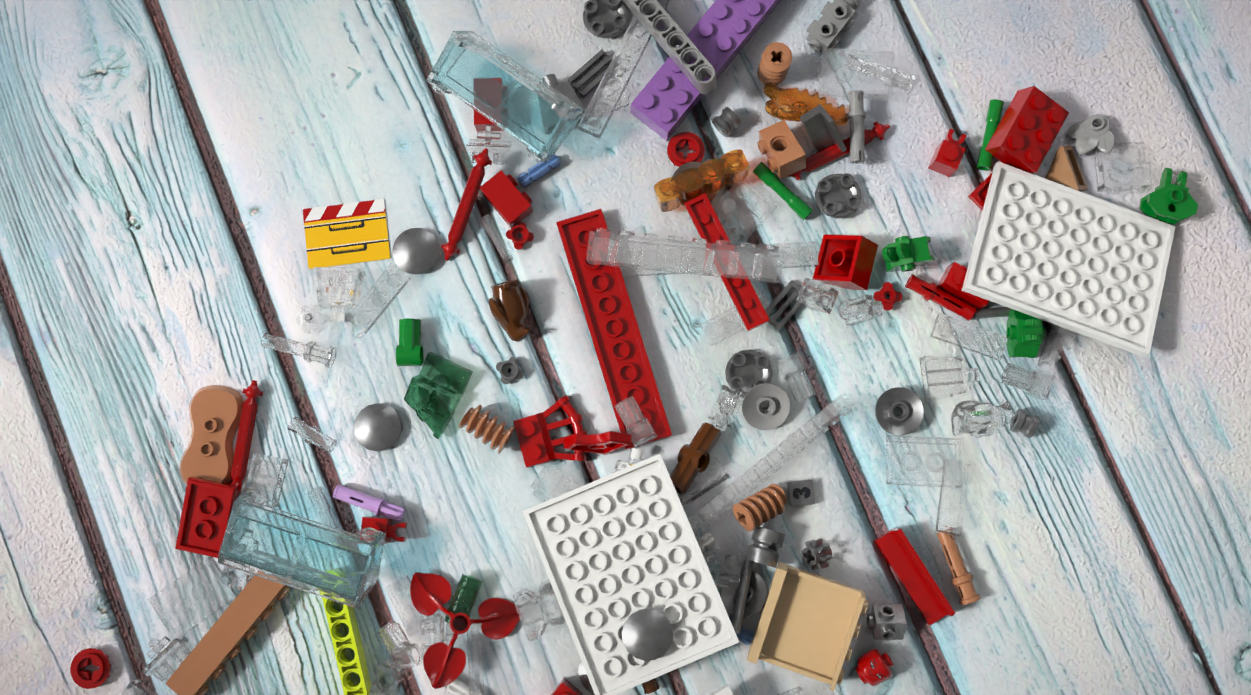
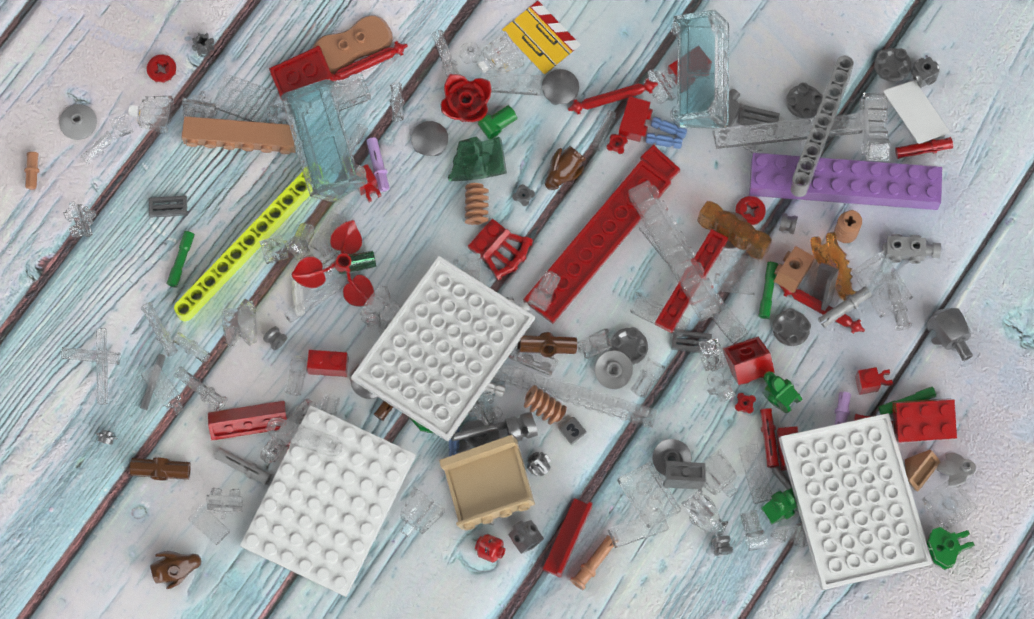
camera: 55 degrees right, 10 degrees down
(94, 610) = (201, 38): none -> flat silver gear
(343, 360) = (459, 88): none -> red brick
(549, 185) = (664, 140): none -> medium blue axle
(571, 205) = (660, 162): none -> red tile
(597, 443) = (516, 278): red tile -> none
(647, 634) = (414, 378): flat silver dish -> none
(931, 410) = (684, 475): none -> flat silver panel
(950, 40) = (951, 331): none -> flat silver piece
(960, 206) = (842, 410): none -> lavender pin

